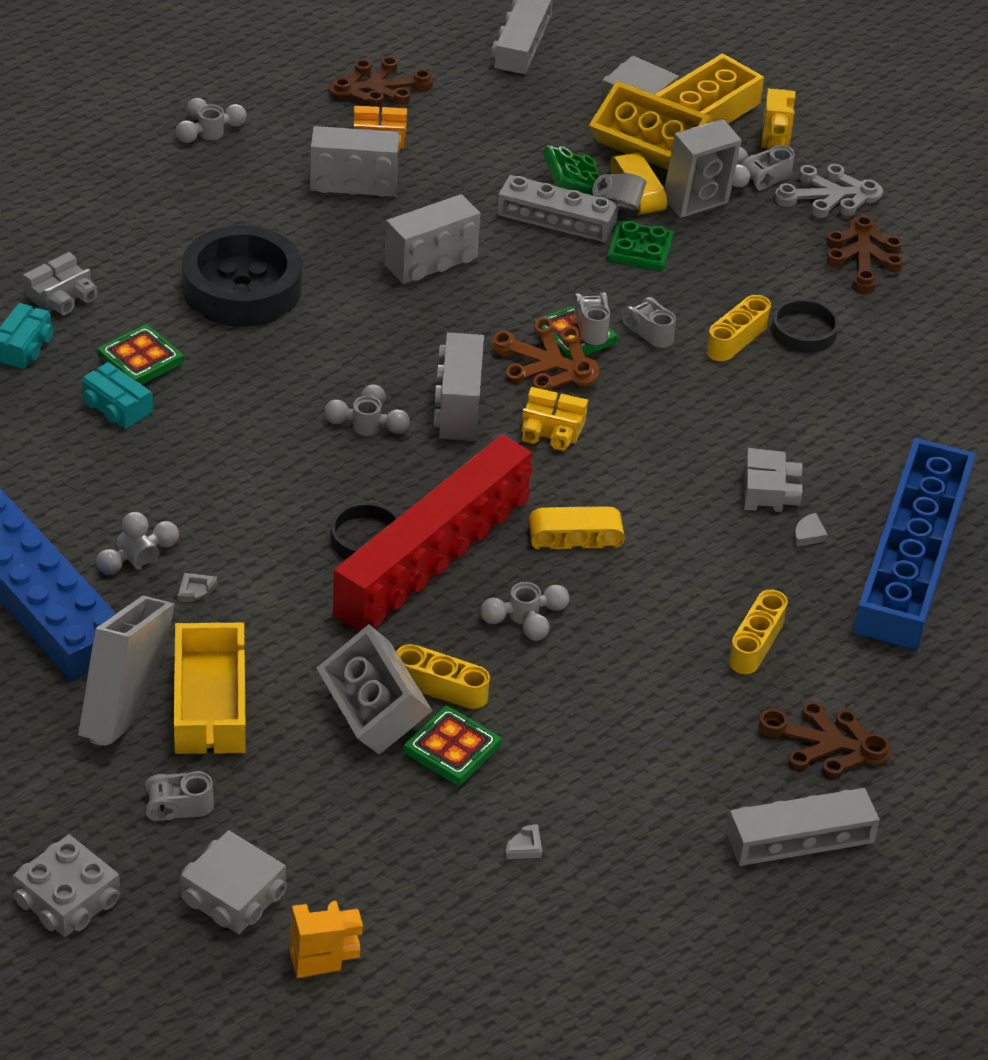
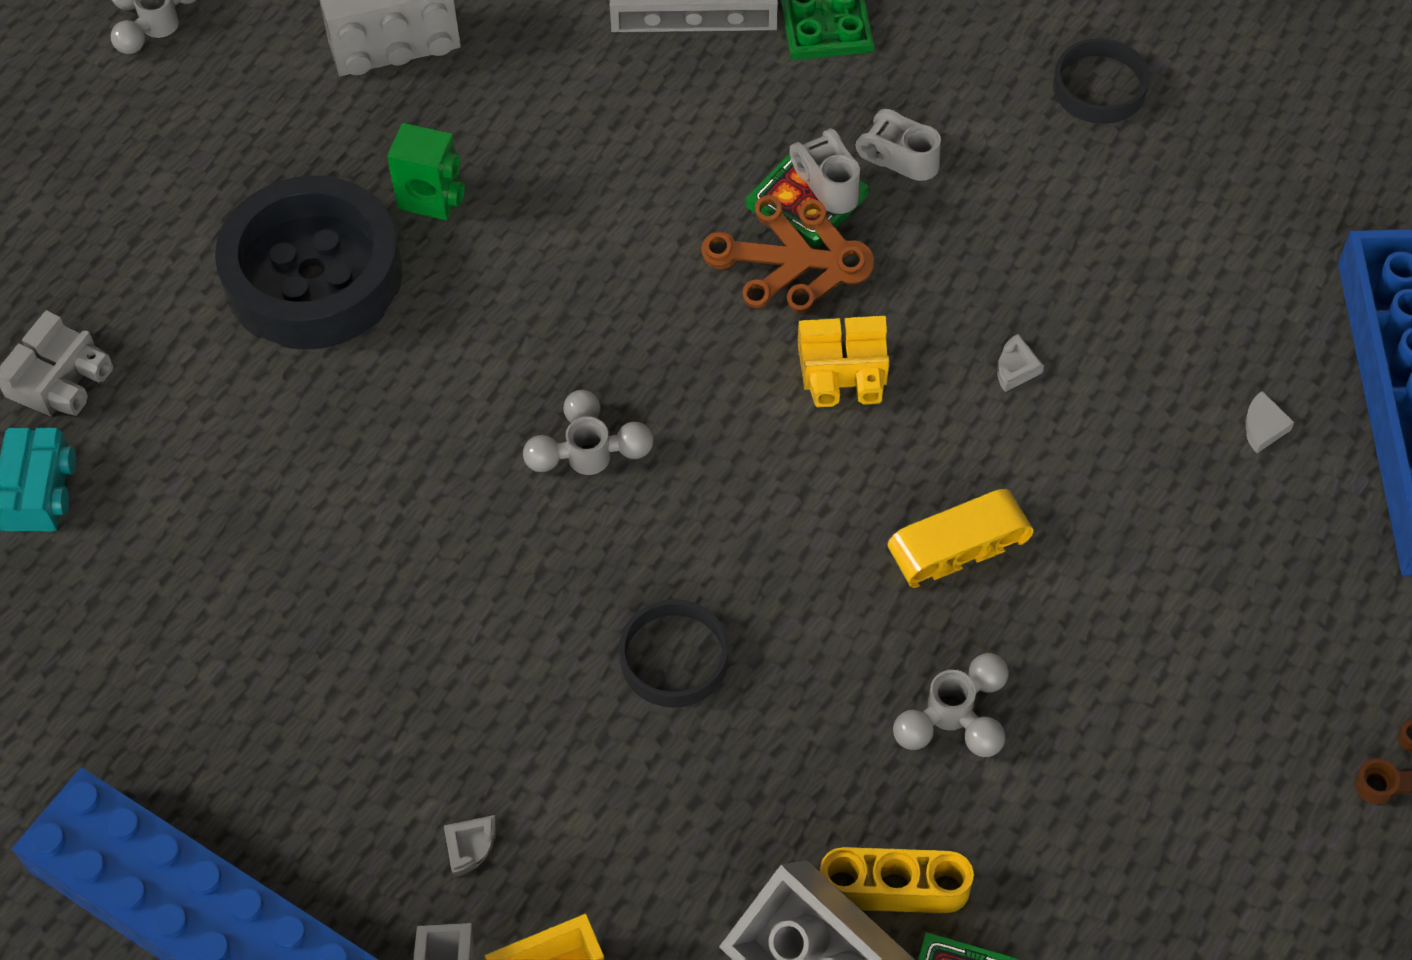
camera: 15 degrees left, 15 degrees up
(116, 395) = (214, 538): teal brick -> none
(136, 545) = (356, 806): light grey piece -> none
(141, 354) = (220, 452): tile -> none
(335, 246) = (425, 171): none -> green brick
(431, 534) = (777, 638): red brick -> none
(432, 239) = (553, 113): light grey brick -> none
(459, 386) = (702, 355): light grey brick -> none
(665, 456) = (1017, 364): none -> light grey tile
(738, 327) = (1020, 116): yellow beam -> none
(758, 631) = (1291, 610): yellow beam -> none
(771, 480) = (1176, 361): light grey hips -> none

